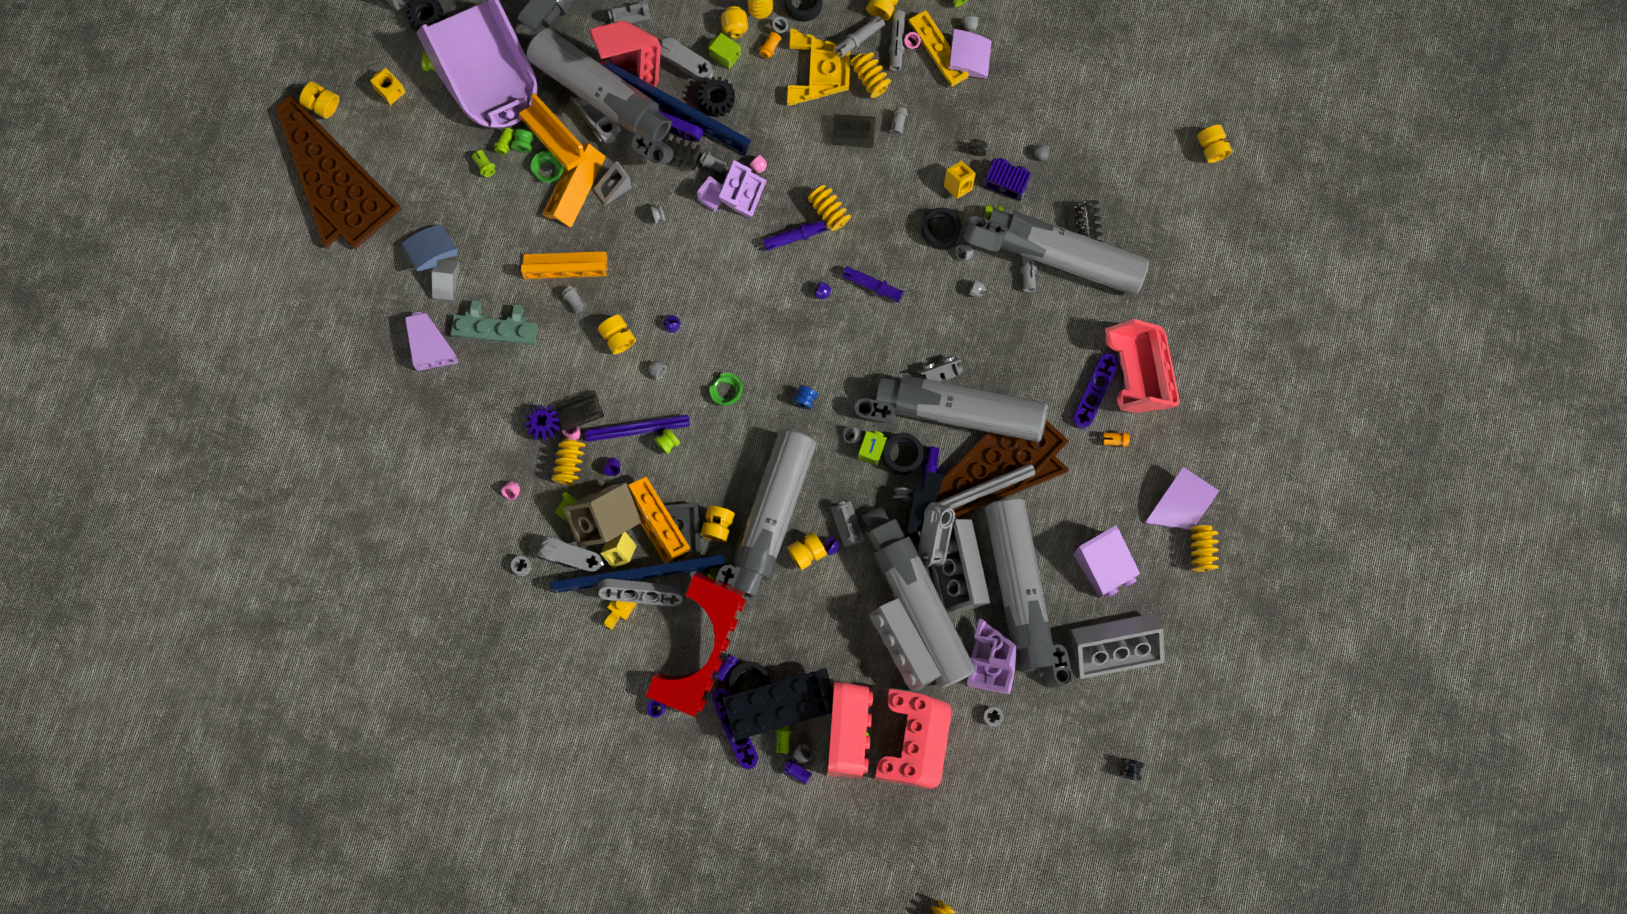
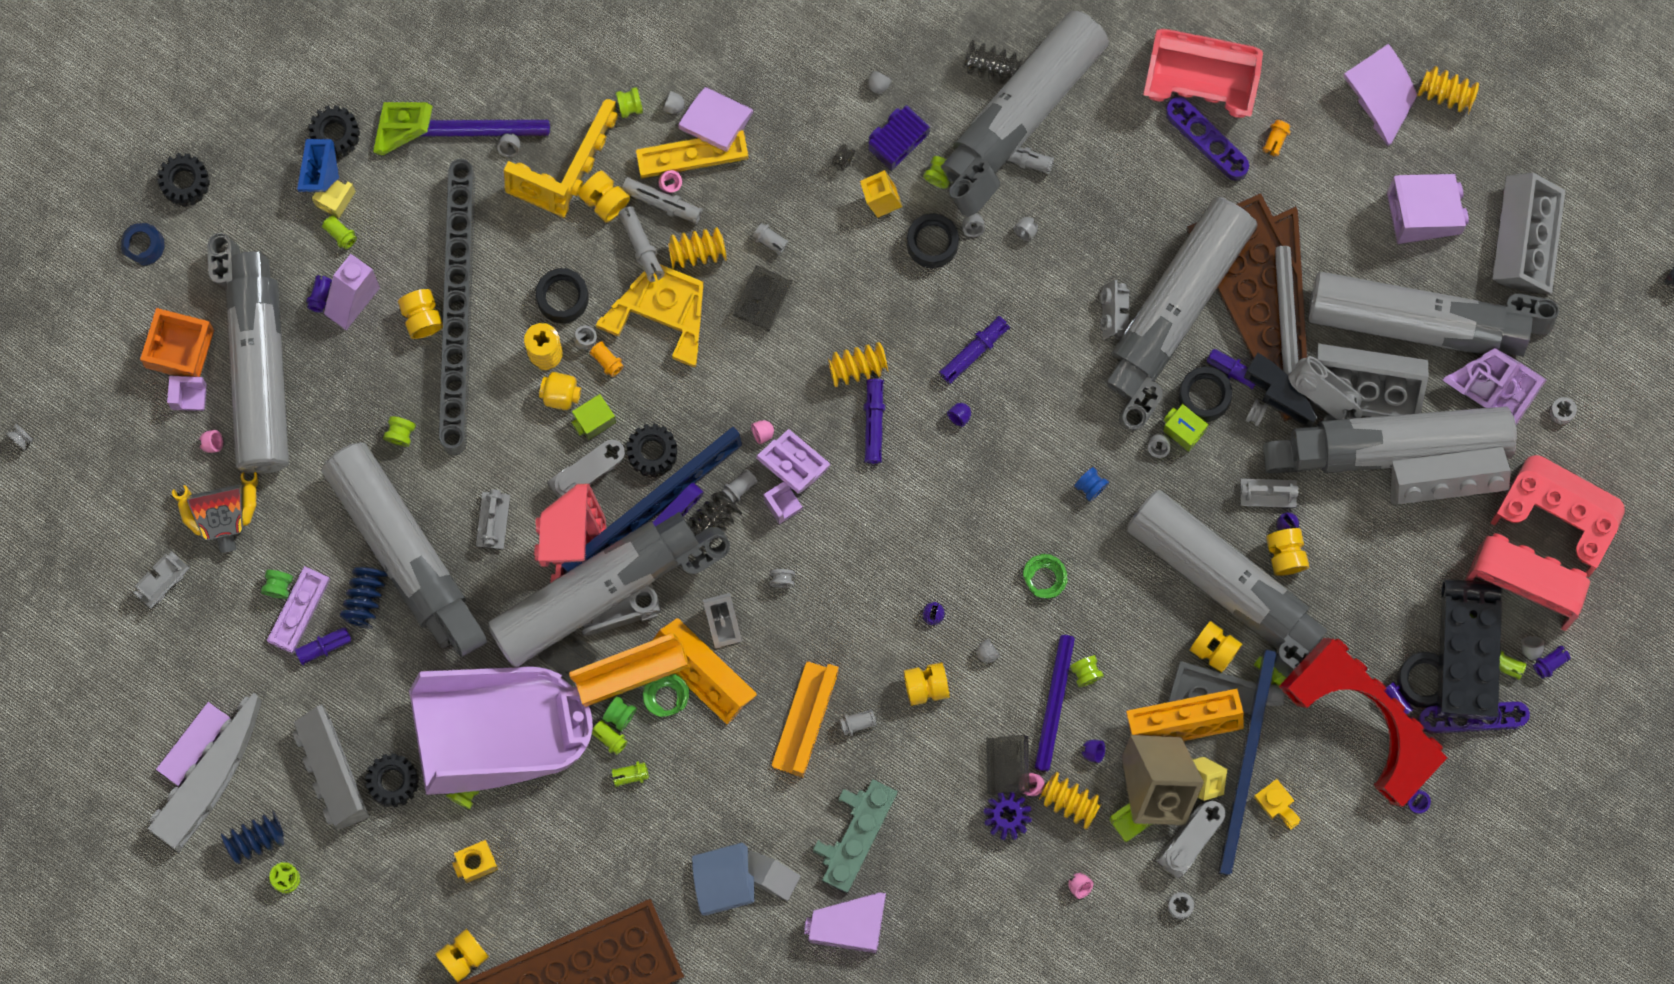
camera: 65 degrees left, 0 degrees up
(671, 593) = (1270, 769): light grey beam -> none

